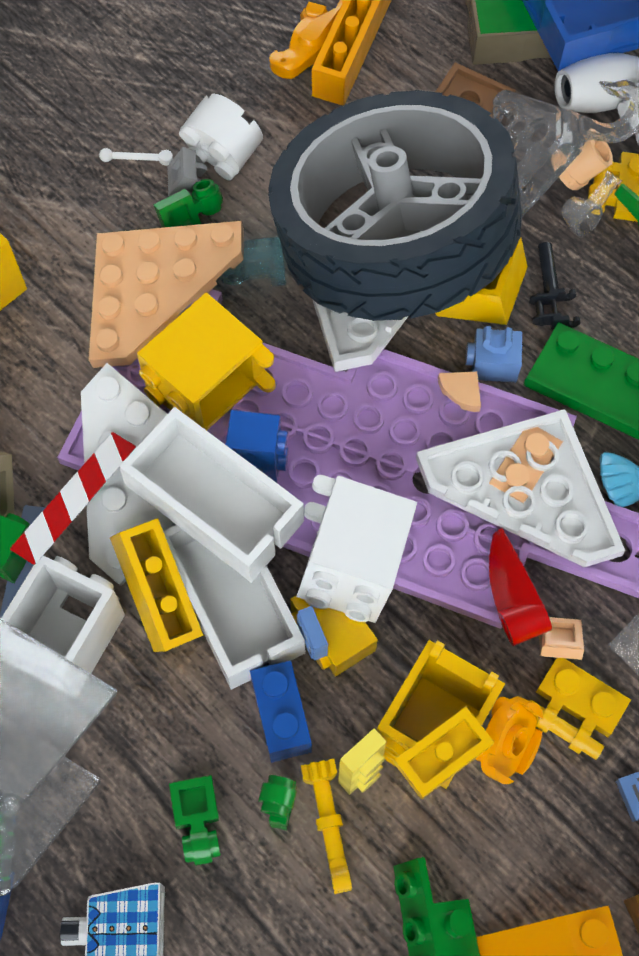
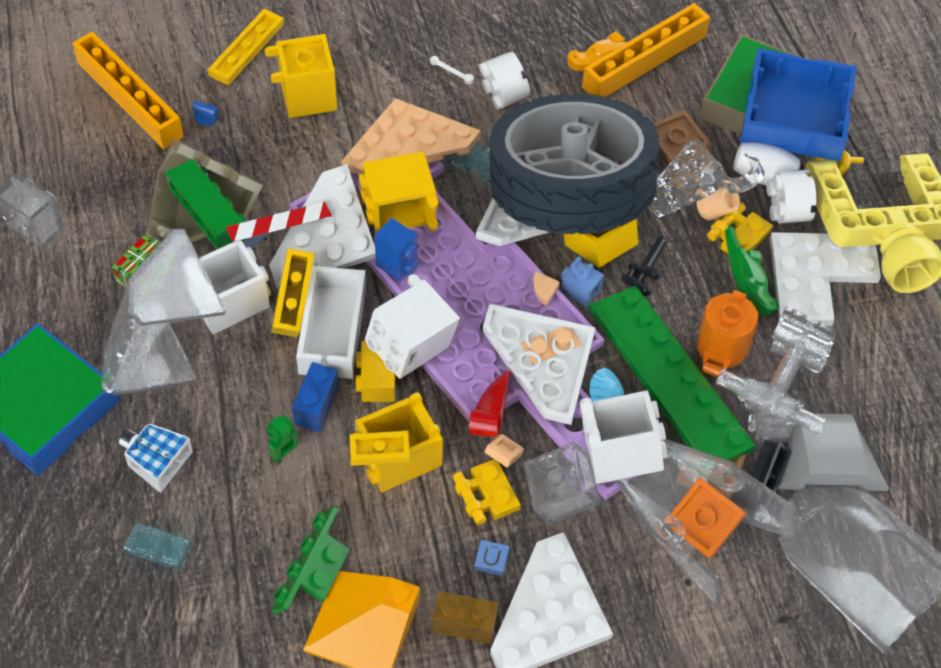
camera: 30 degrees right, 10 degrees down
(183, 209) = (453, 109): green plate -> none
(184, 171) = (471, 91): light grey tile -> none
(193, 807) = (234, 418): green plate -> none
(212, 493) = (352, 256): white piece -> none
(312, 633) = (357, 360): medium blue tile -> none
(319, 775) = (314, 441): yellow piece -> none
(362, 763) = (335, 436): light yellow plate -> none
(514, 738) = (421, 469): light orange plate -> none
(585, 214) = (699, 235): clear bar -> none

